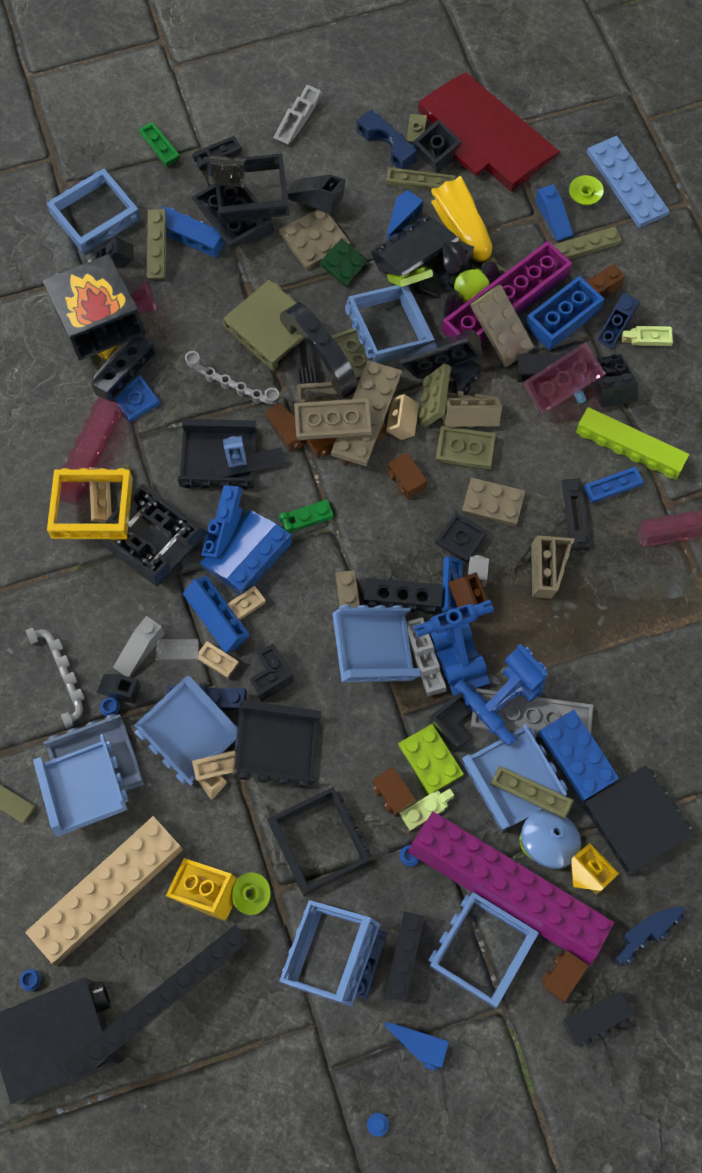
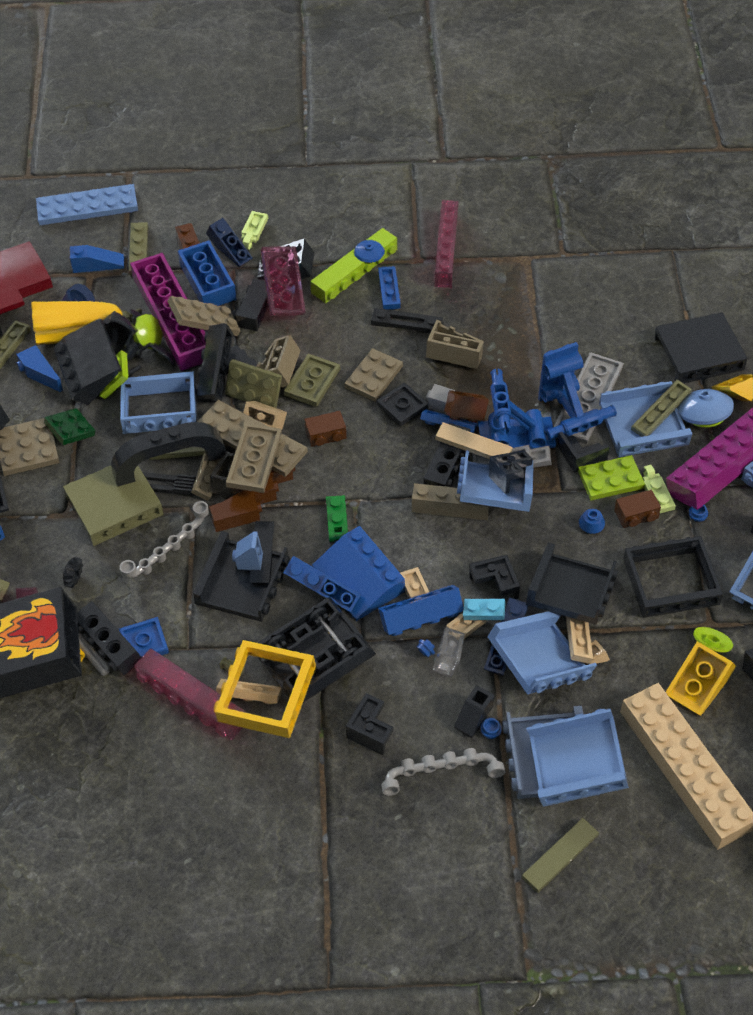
camera: 75 degrees left, 15 degrees down
(83, 595) = (366, 728): none -> black panel
(138, 646) = (433, 687): light grey slope -> none
(179, 629) = (426, 647): none -> blue plate
(183, 319) = (72, 572): none -> black gear
(227, 669) = (484, 609): none -> medium azure plate
(371, 754) = (592, 521): none -> blue cone
(396, 647) = (508, 467): none -> black panel
(420, 611) = (471, 442): none -> tan tile
(497, 216) = (78, 293): none -> dark blue piece
(578, 755) = (636, 367): blue brick -> none
(588, 185) = (83, 231): lime dish -> none
(649, 450) = (369, 251): none -> blue piece

